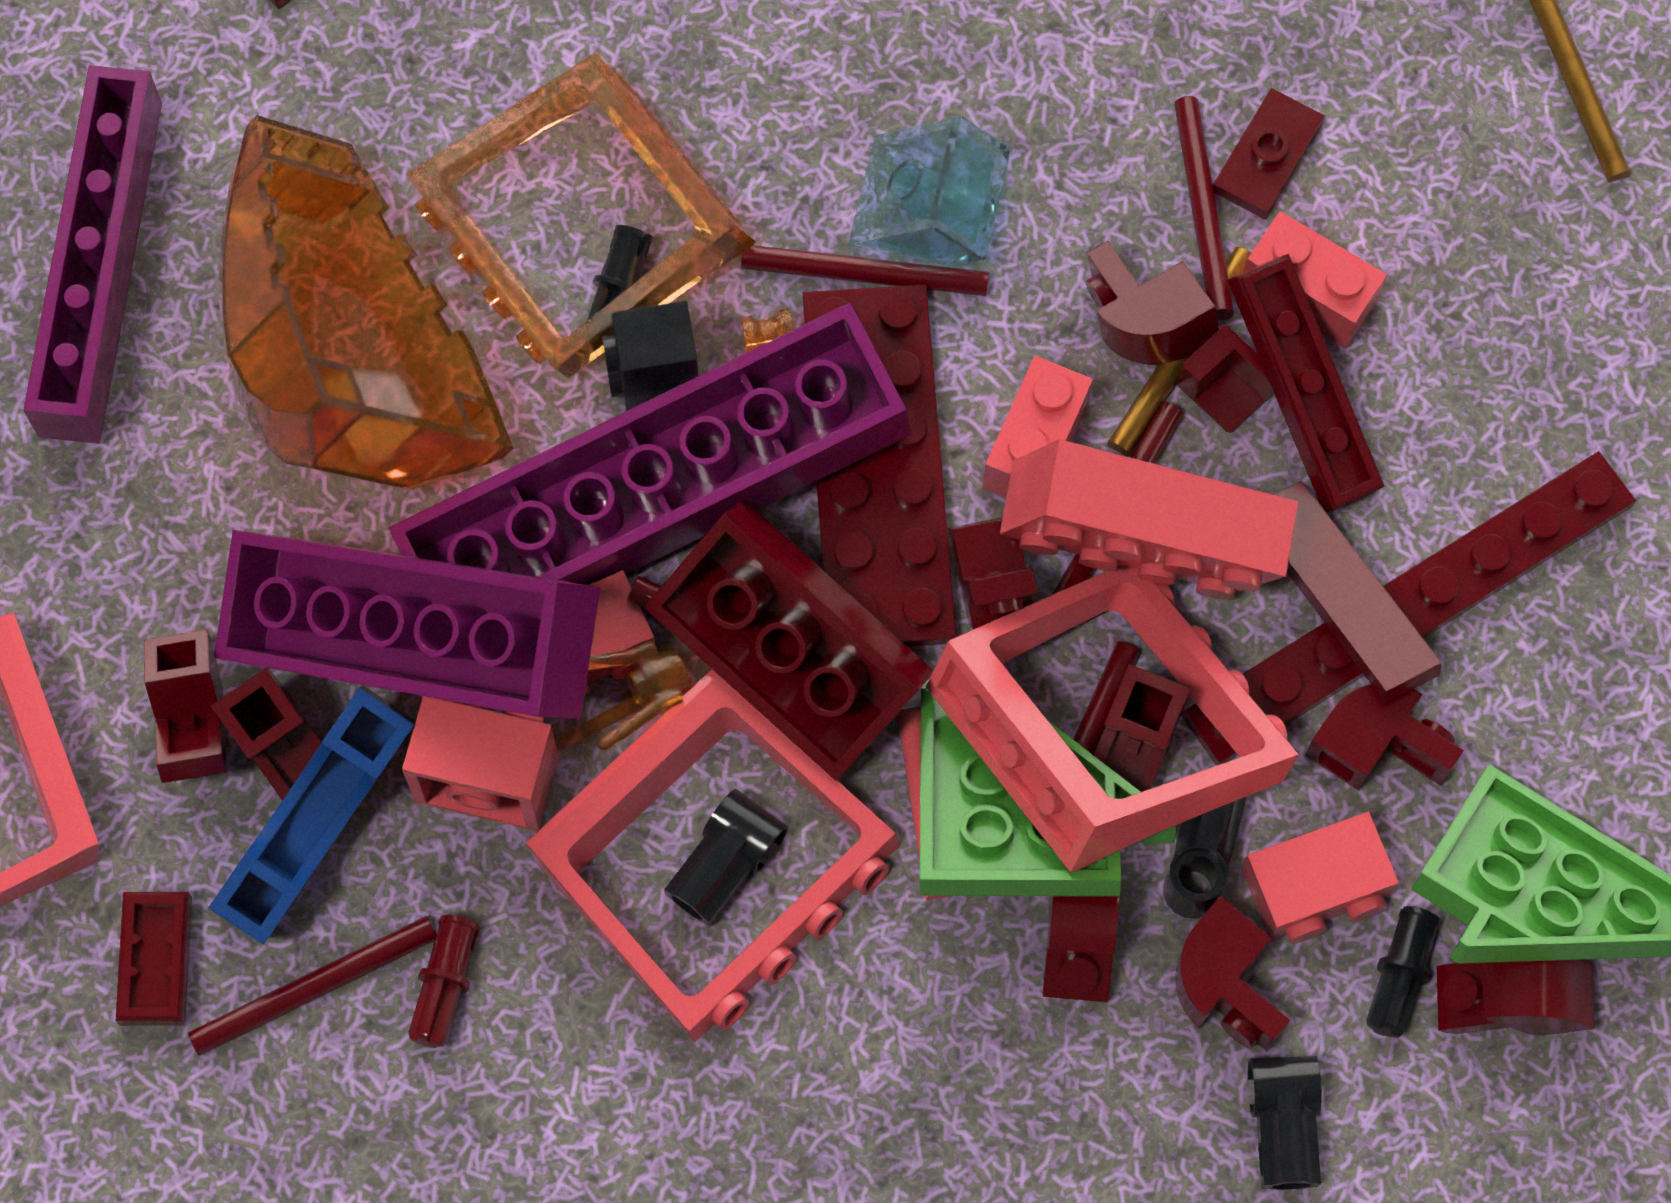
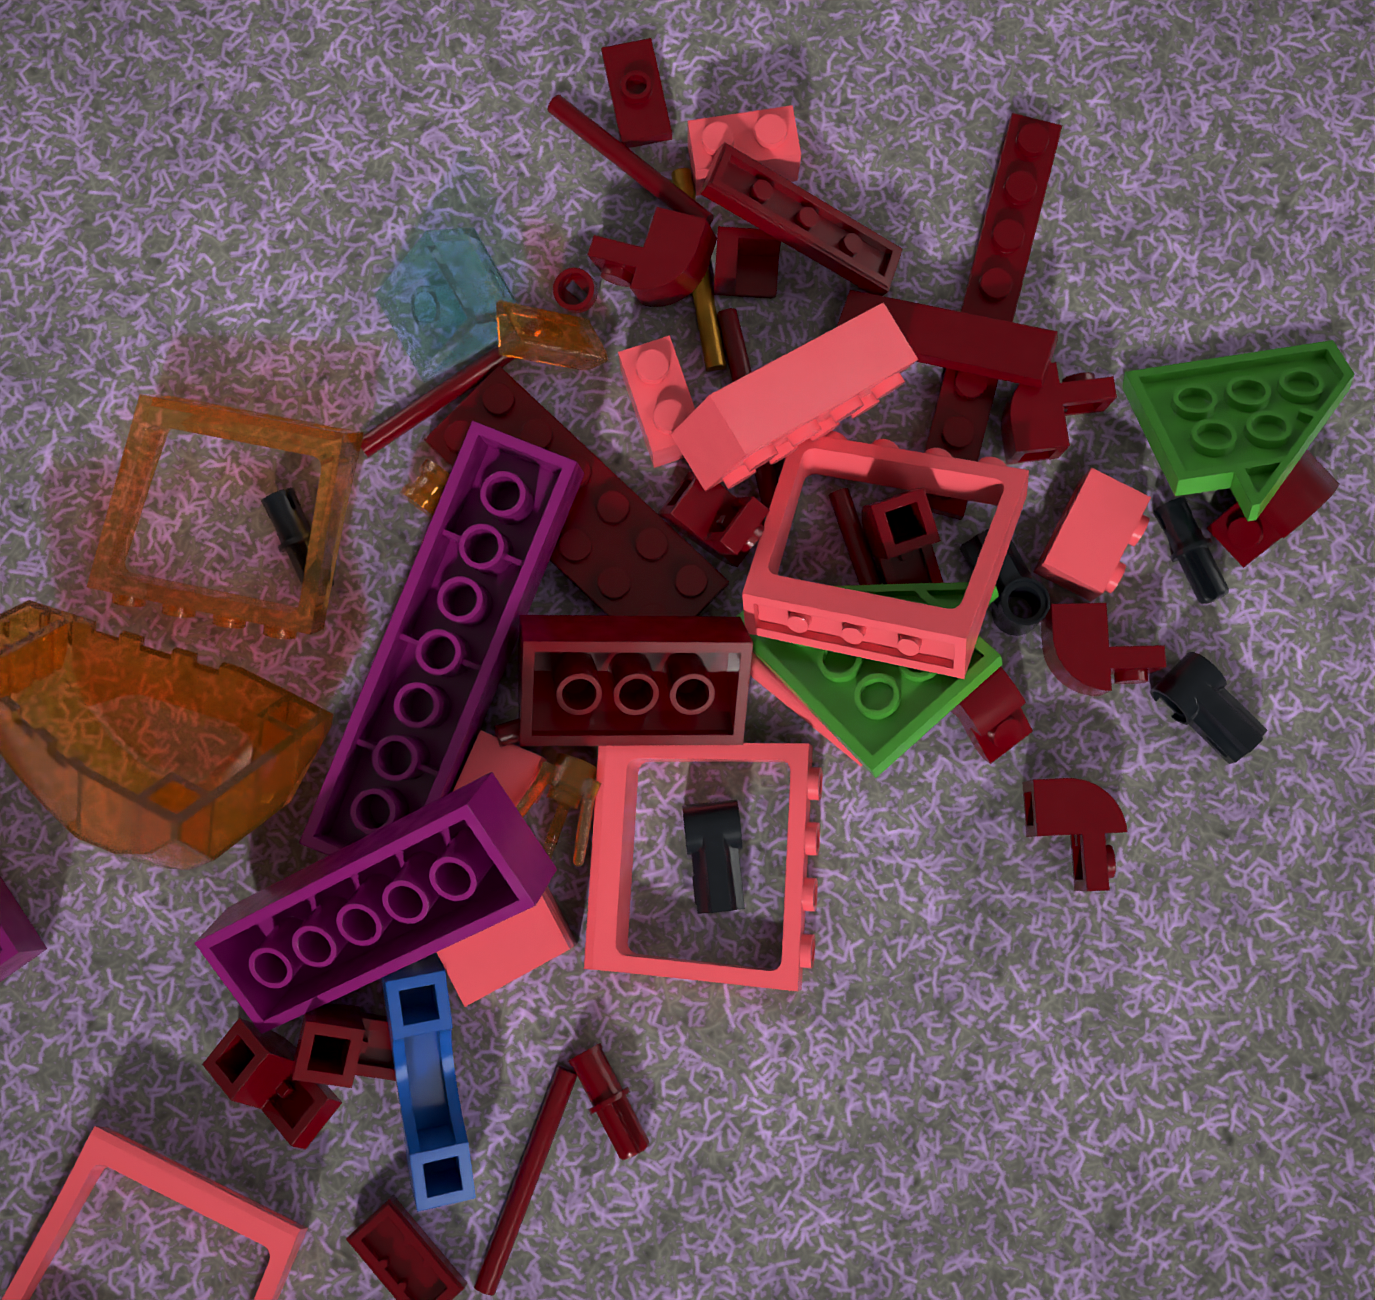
camera: 40 degrees left, 10 degrees up
(650, 352) = (367, 569): black brick -> none
(988, 294) = (548, 337): none -> clear orange slope
(1039, 281) = (567, 299): none -> dark red hinge
(1079, 1098) = (1085, 814): none -> dark red brick

